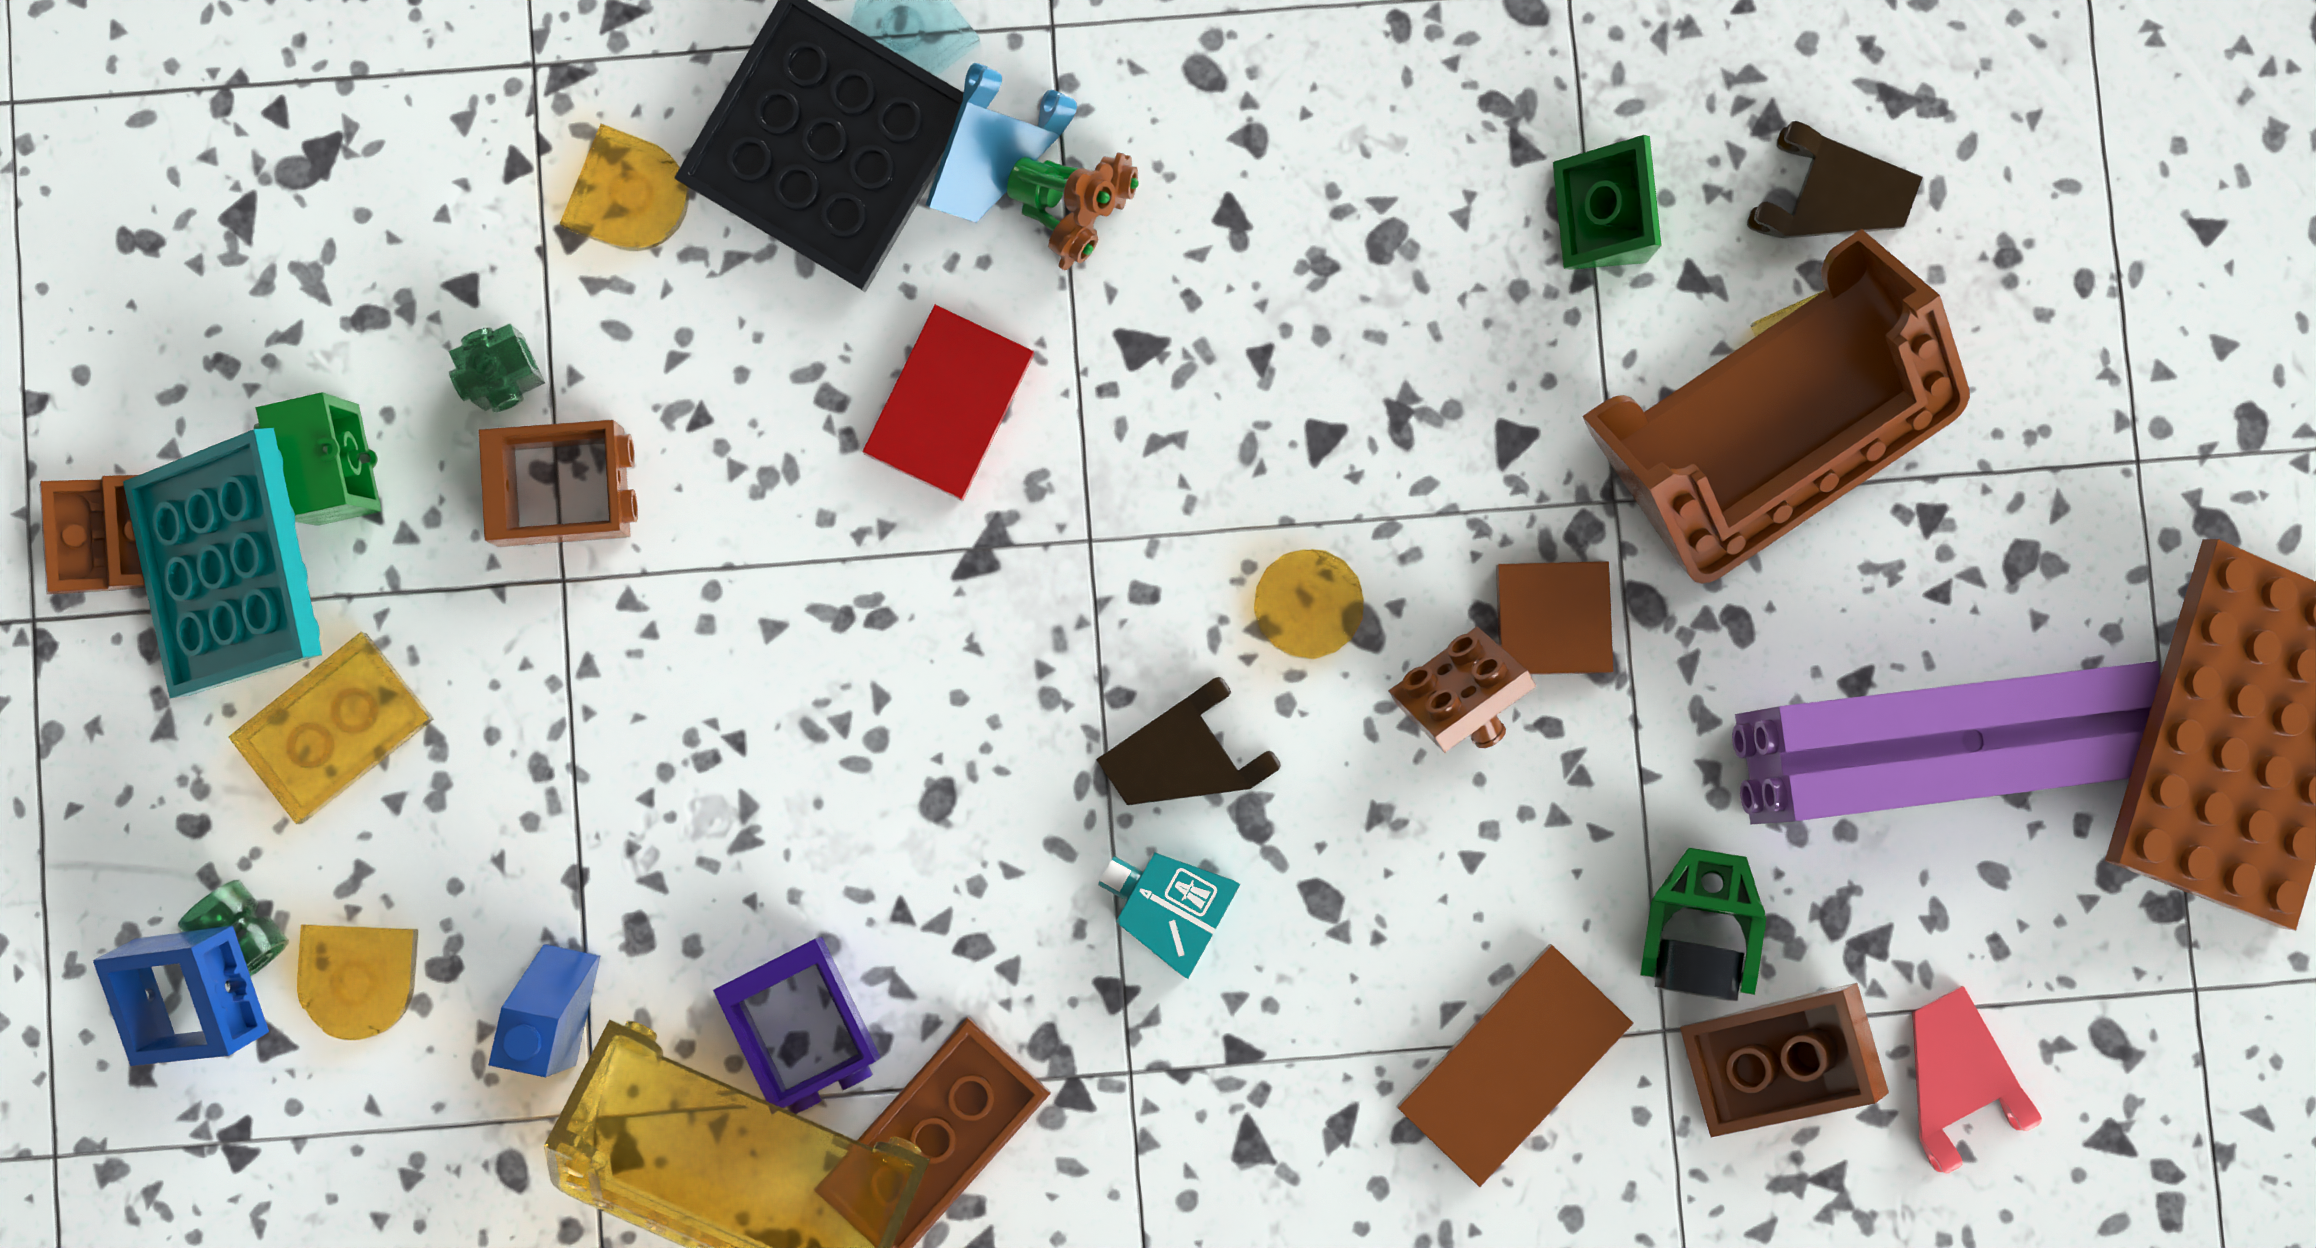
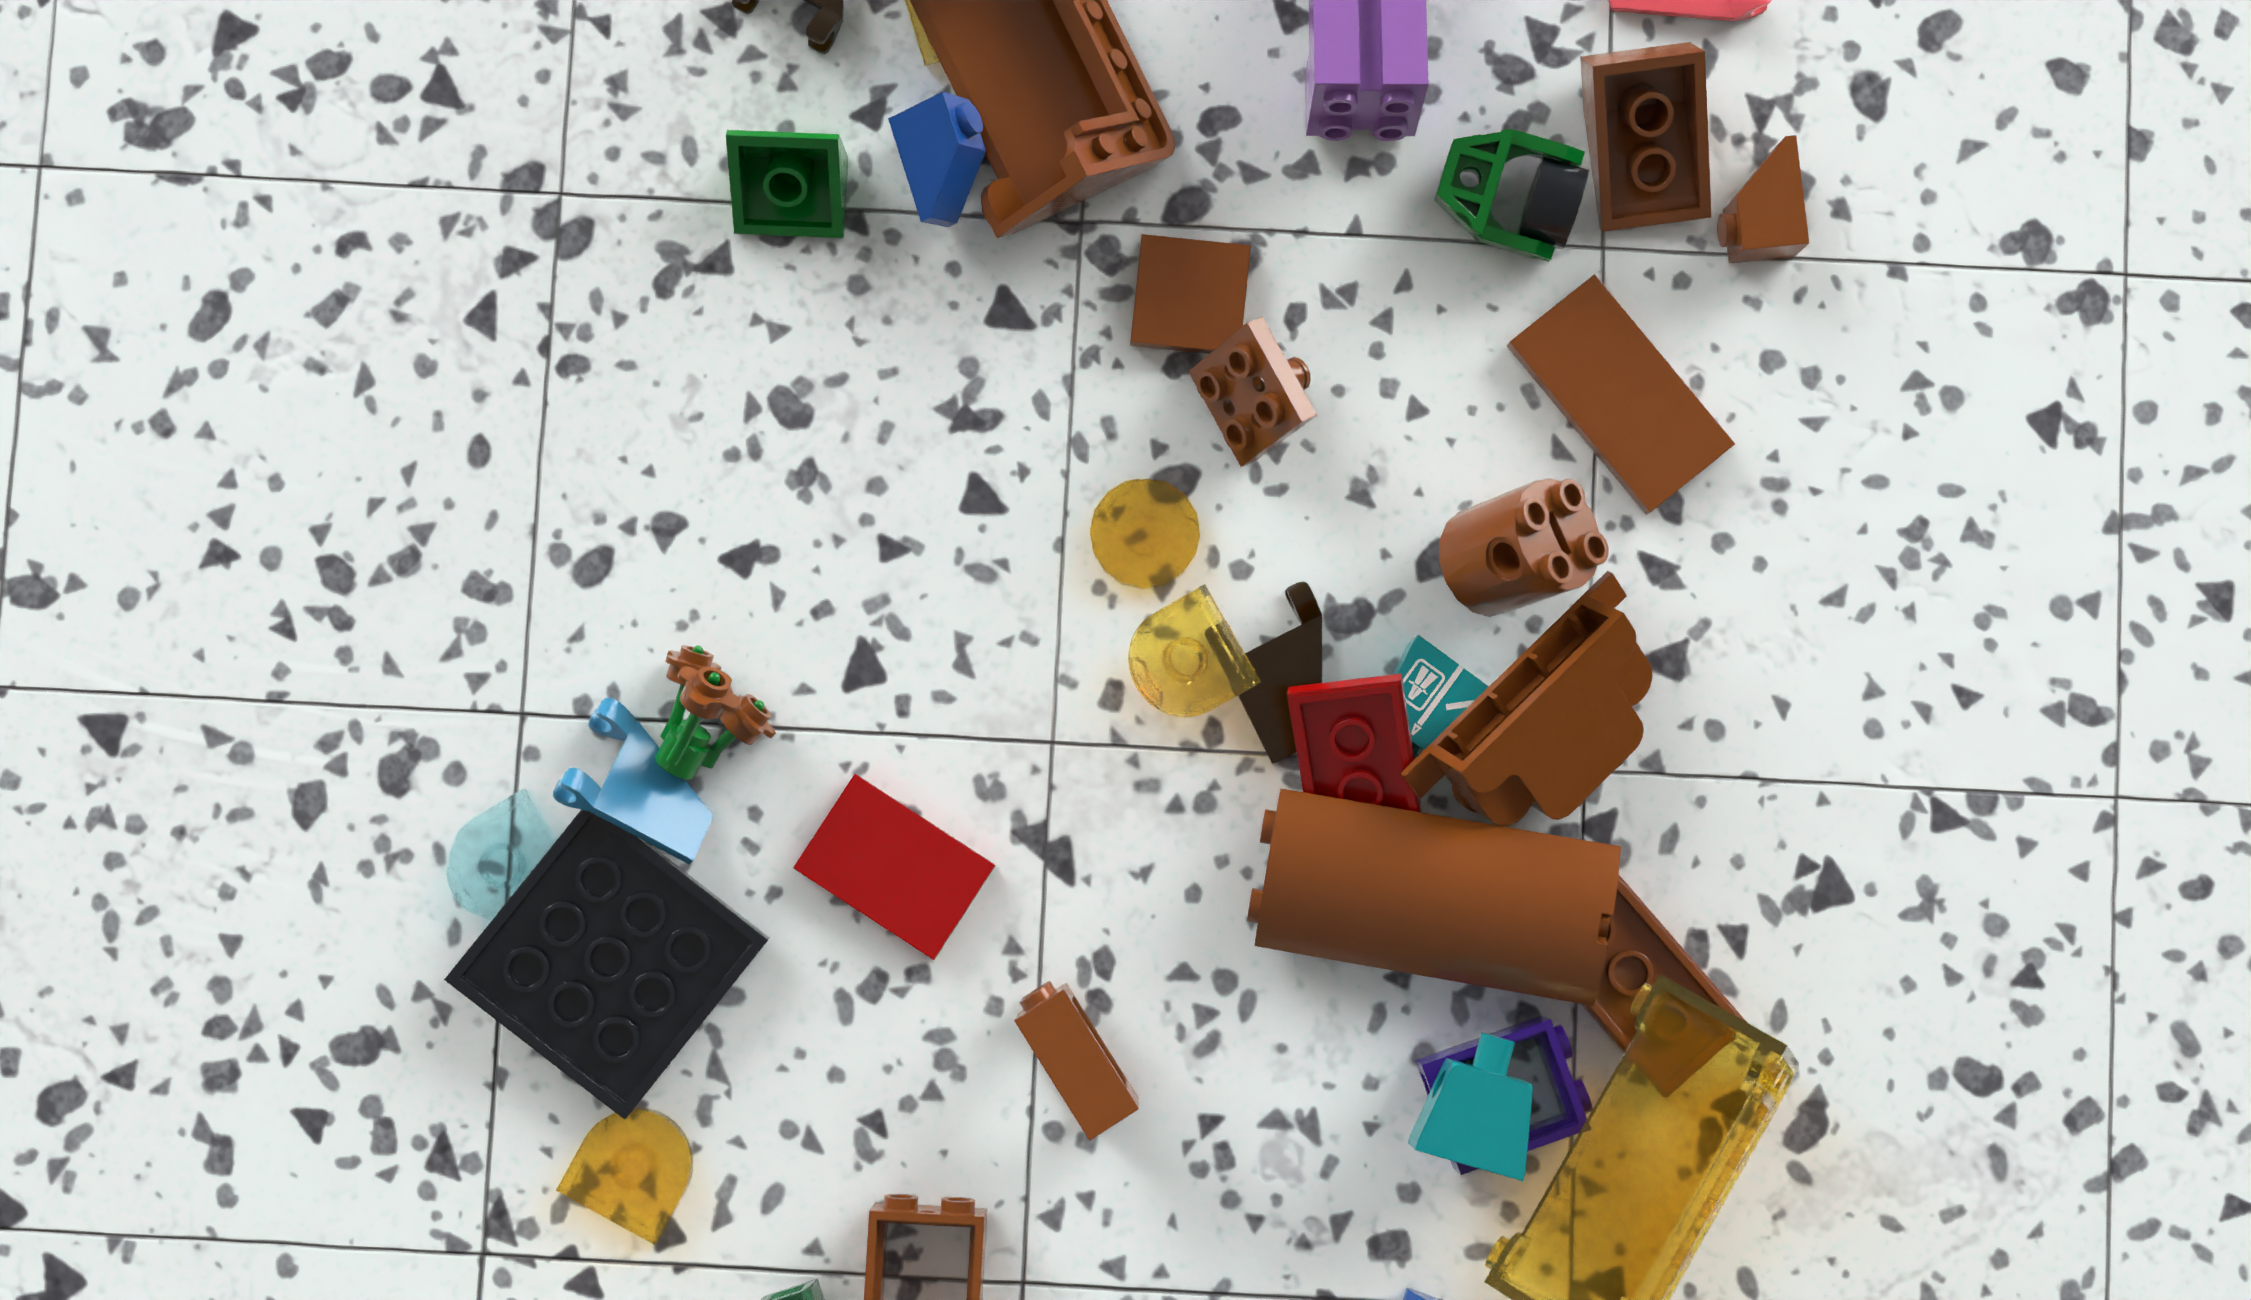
camera: 80 degrees left, 0 degrees up
(773, 996) = (1478, 1112): none -> teal torso
(781, 599) = (1076, 1058): none -> dark orange window
(983, 932) = (1436, 896): none -> dark orange cylinder
(1106, 838) = (1354, 740): none -> red tile
(1171, 1025) = (1549, 720): none -> dark orange brick
(1188, 661) = (1189, 657): none -> clear yellow tile
(1340, 975) = (1521, 547): none -> dark orange cylinder
(1658, 350) = (940, 154): none -> blue slope
(1723, 1193) = (1768, 211): none -> dark orange slope

